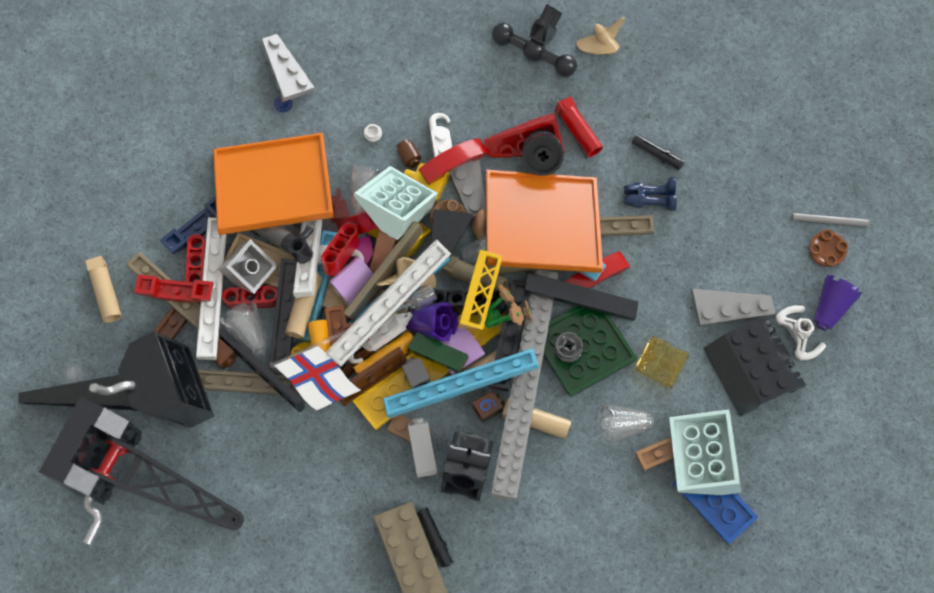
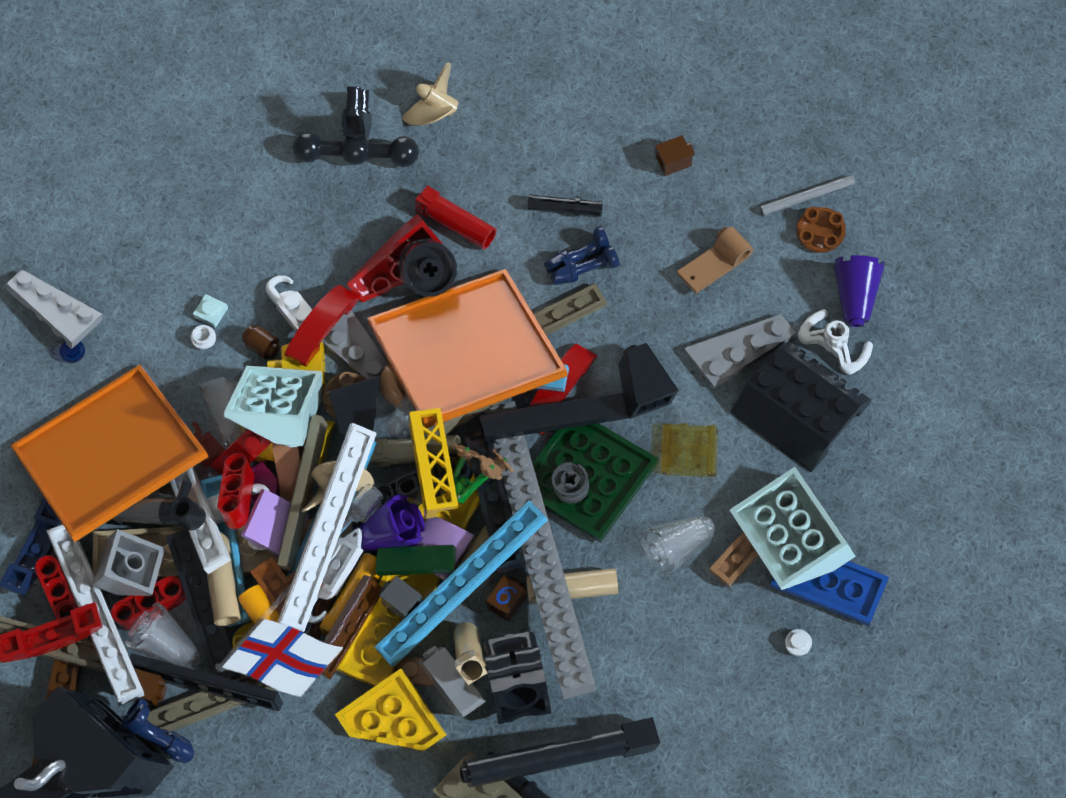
camera: 20 degrees left, 5 degrees down
(219, 400) = (171, 742): none -> dark blue piece
(373, 451) = (392, 715): none -> yellow plate
(386, 117) = (210, 310): none -> light aqua plate
(442, 434) = (469, 652): none -> tan piece
(519, 544) = (628, 740): none -> black brick
(653, 299) = (644, 381): none -> black slope
(673, 532) = (798, 642): none -> white plate
(744, 238) = (726, 254): none -> medium nougat door
(750, 150) = (674, 155): none -> reddish brown brick

